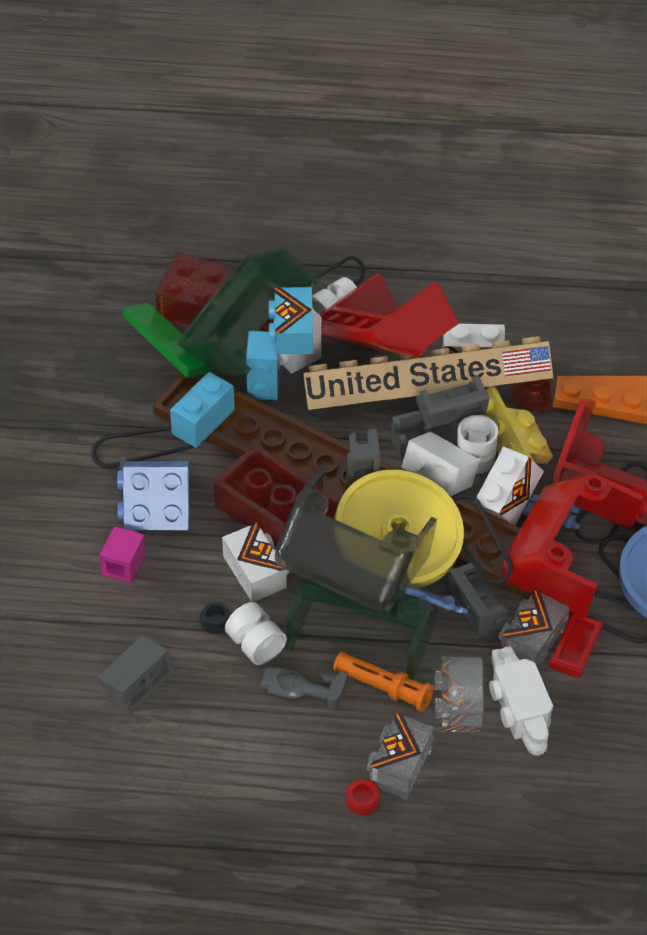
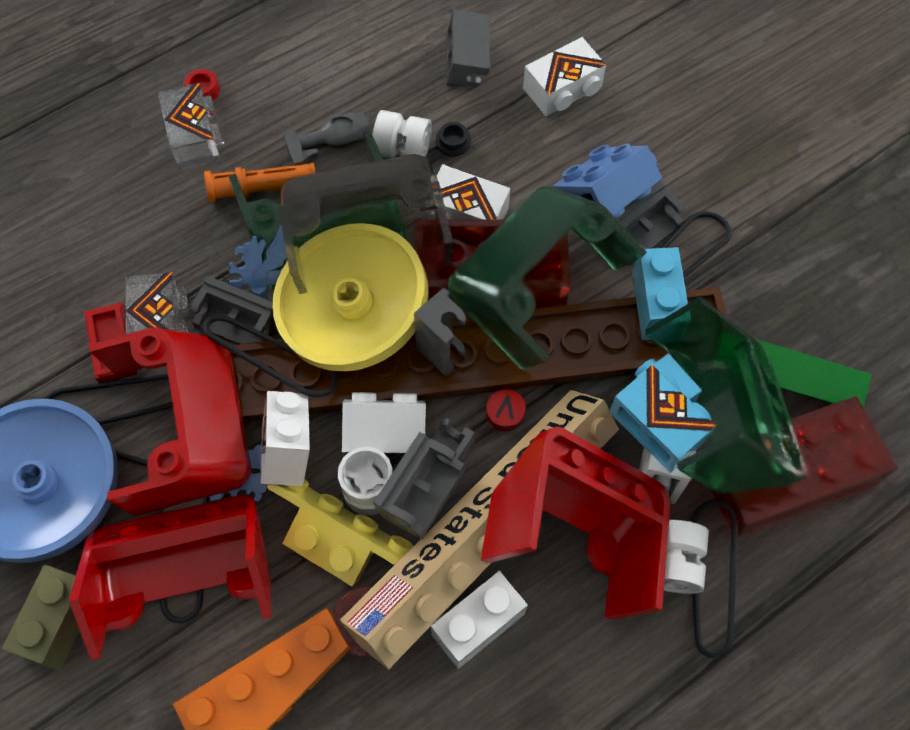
camera: 140 degrees right, 15 degrees up
(91, 602) = (564, 76): none -> white brick
(122, 554) = (583, 130): dark pink brick -> none
(267, 458) = (490, 278): none -> clear green windscreen
(347, 430) = (505, 410): none -> red tile
(461, 694) = (179, 210): clear brick -> none
(522, 699) = (117, 241): white hinge -> none

